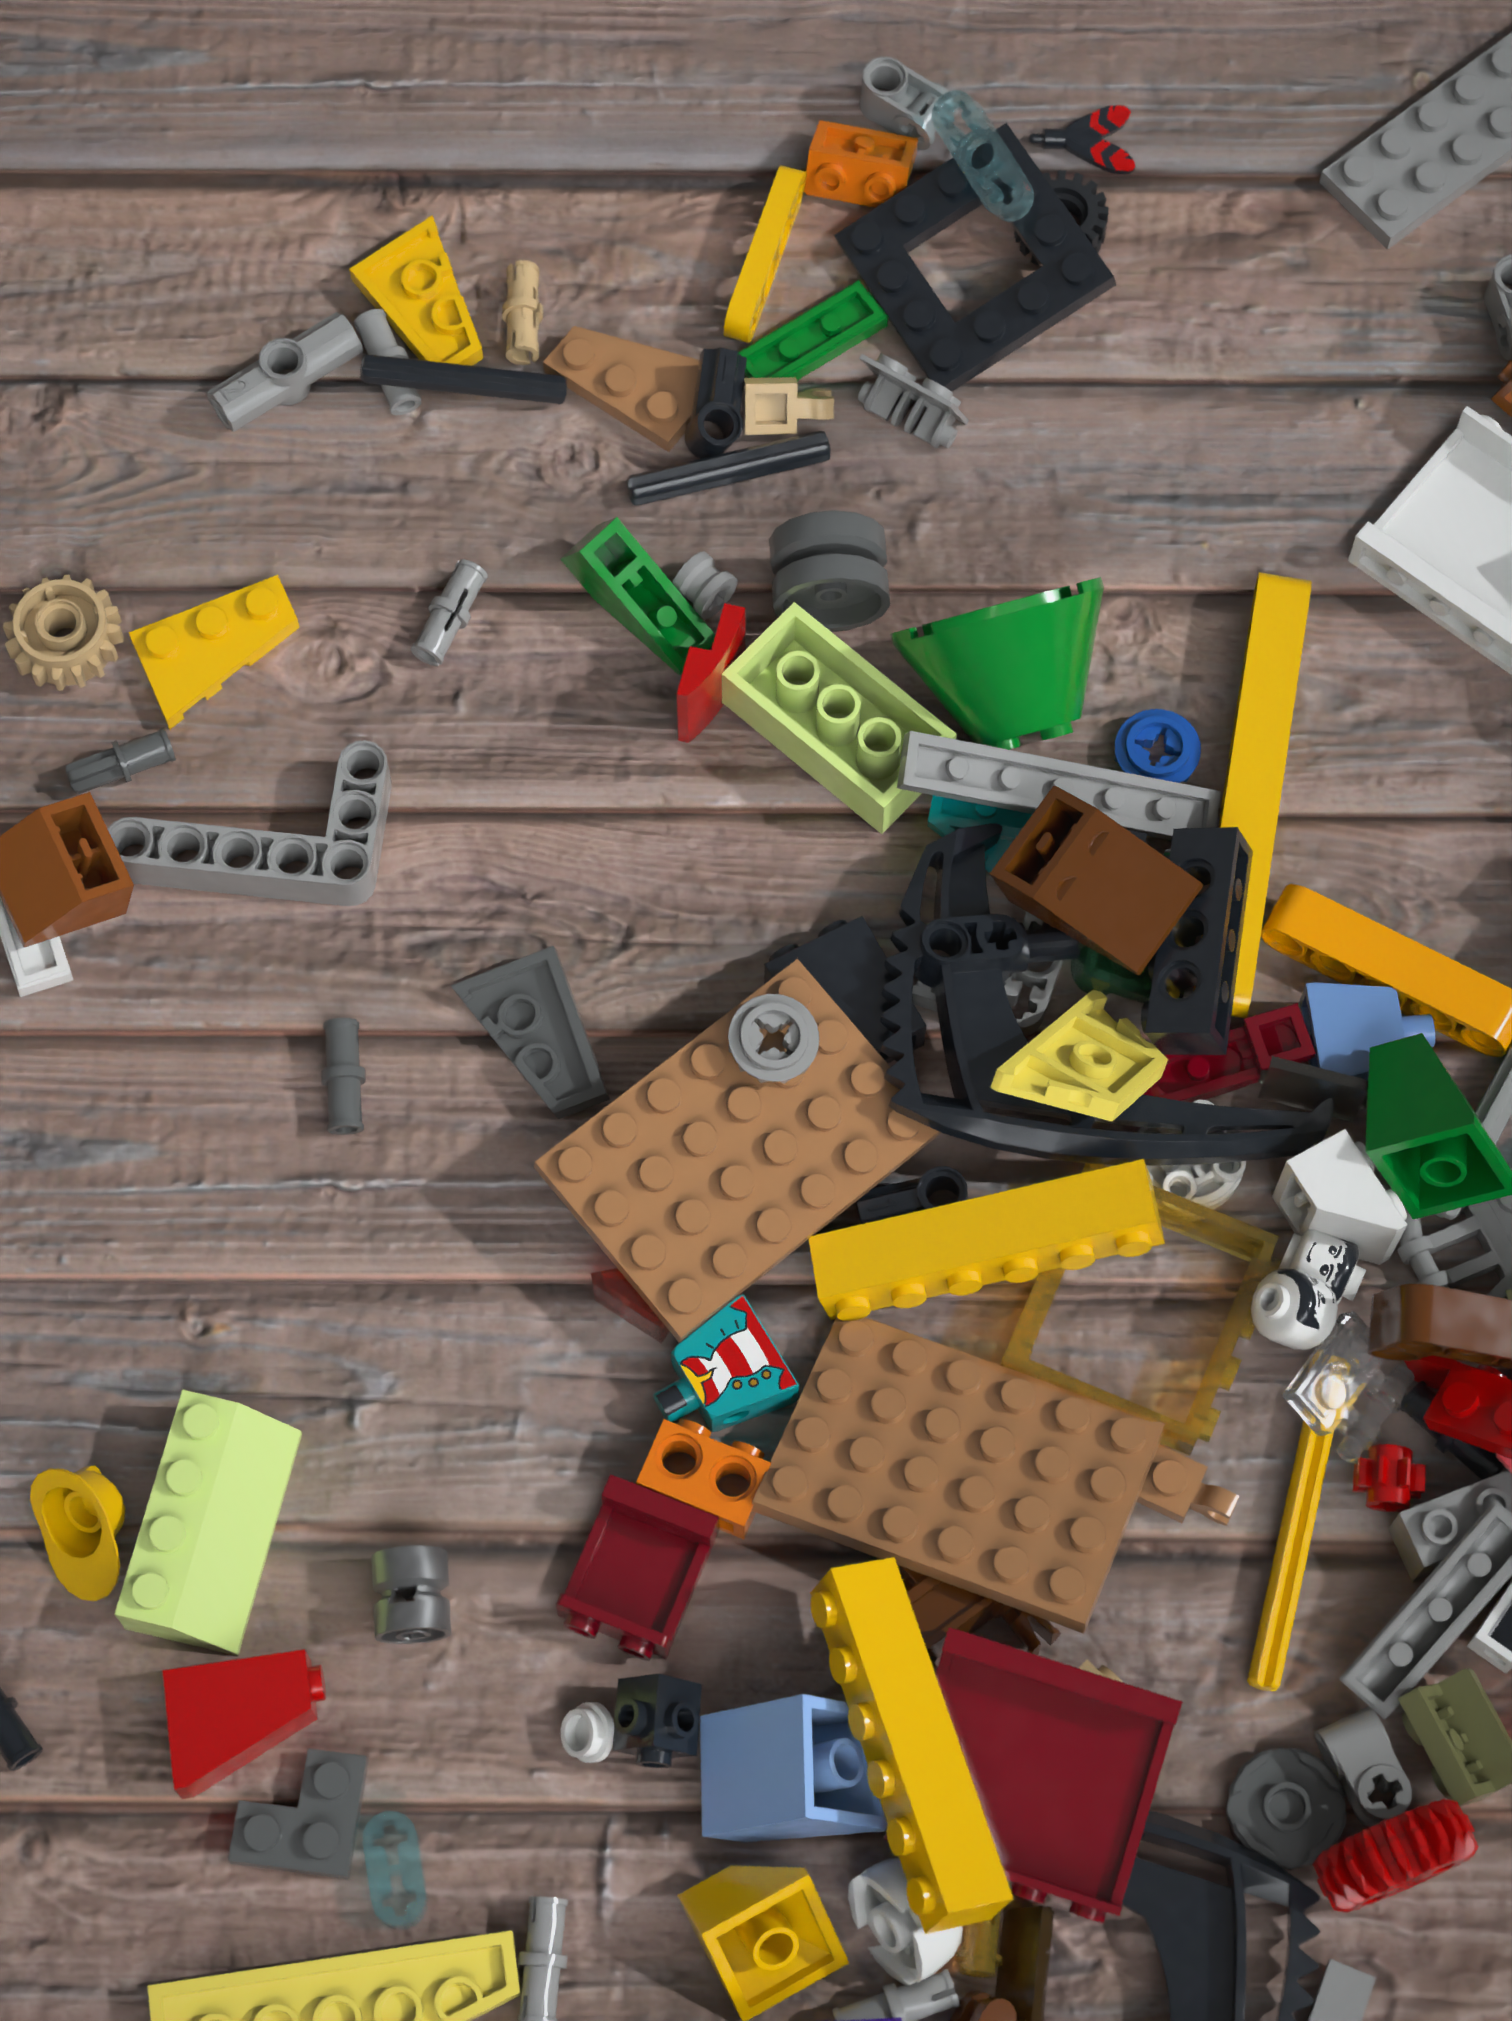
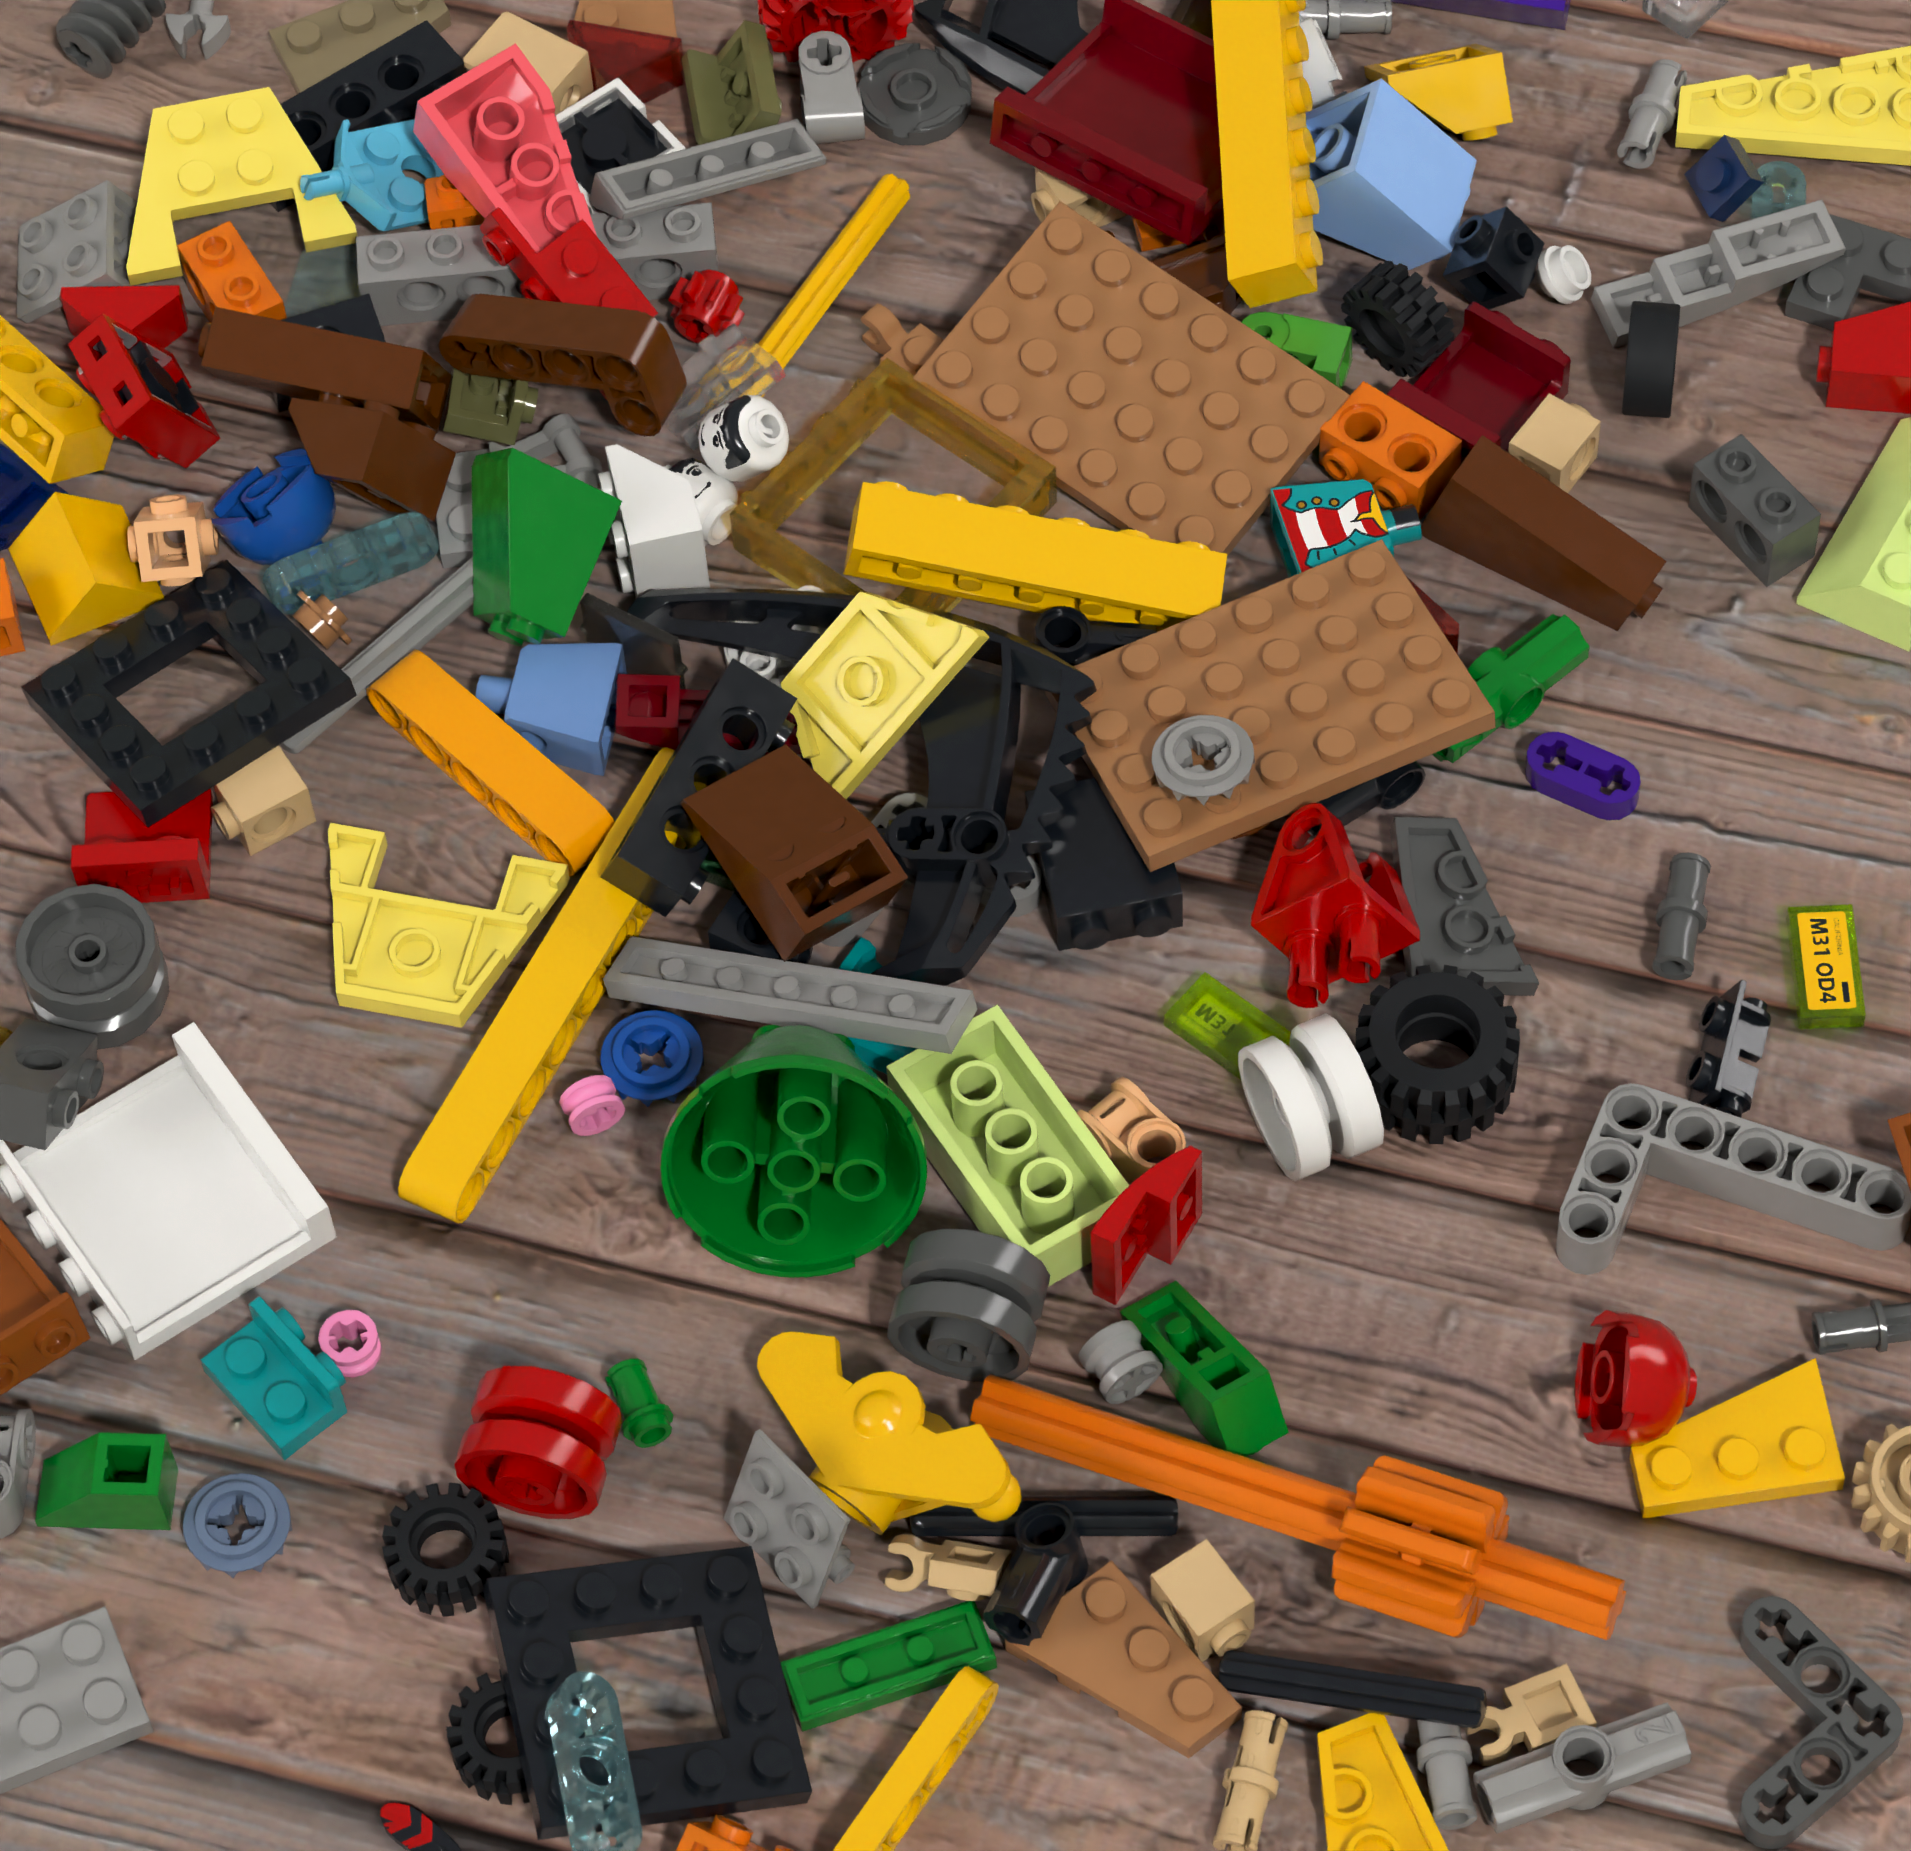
camera: 160 degrees left, 10 degrees down
(108, 449) = (1833, 1737): none -> dark grey beam
(214, 1067) = (1825, 966): none -> tile
(284, 938) = (1730, 1030): none -> black hinge
(300, 653) = (1632, 1380): none -> red cylinder
(326, 408) = (1534, 1714): none -> tan plate
(353, 1492) = (1754, 510): none -> dark grey brick
(409, 1574) = (1712, 404): flat silver wheel -> none
(435, 1764) = (1728, 270): none -> light grey slope
(442, 470) = (1402, 1543): none -> orange axle
(449, 612) = (1442, 1410): light grey pin -> none
(454, 1888) = (1724, 178): none -> dark blue plate
(460, 1184) = (1582, 776): none -> dark purple beam
(479, 1625) = (1651, 359): none -> black tyre
(511, 846) = (1446, 1010): none -> black tyre
(536, 1266) = (1521, 674): none -> green piece
(542, 1406) = (1542, 538): none -> reddish brown slope
(552, 1522) = (1558, 441): none -> tan brick
(590, 422) = (1203, 1602): none -> tan brick
(609, 805) = (1311, 1097): none -> white wheel
(628, 972) = (1325, 911): none -> red piece
(692, 889) = (1220, 1022): none -> clear neon green tile
(730, 1612) = (1398, 319): none -> black tyre
(755, 771) = (1132, 1129): none -> light nougat piece
(798, 1571) = (1315, 343): none -> bright green leg
(861, 454) = (877, 1443): none -> yellow piece
(1060, 473) = (644, 1416): none -> green pin
(1118, 393) = (538, 1442): none -> red wheel
(1169, 310) = (434, 1515): none -> black tyre
(1188, 691) = (592, 1105): none -> bright pink bush
(1288, 461) = (351, 1325): none -> bright pink bush
(1334, 305) = (217, 1506): none -> sand blue gear
(1341, 429) = (277, 1379): none -> teal bracket
(1387, 788) = (424, 953): none -> light yellow wing
(1424, 309) = (110, 1484): none -> green slope

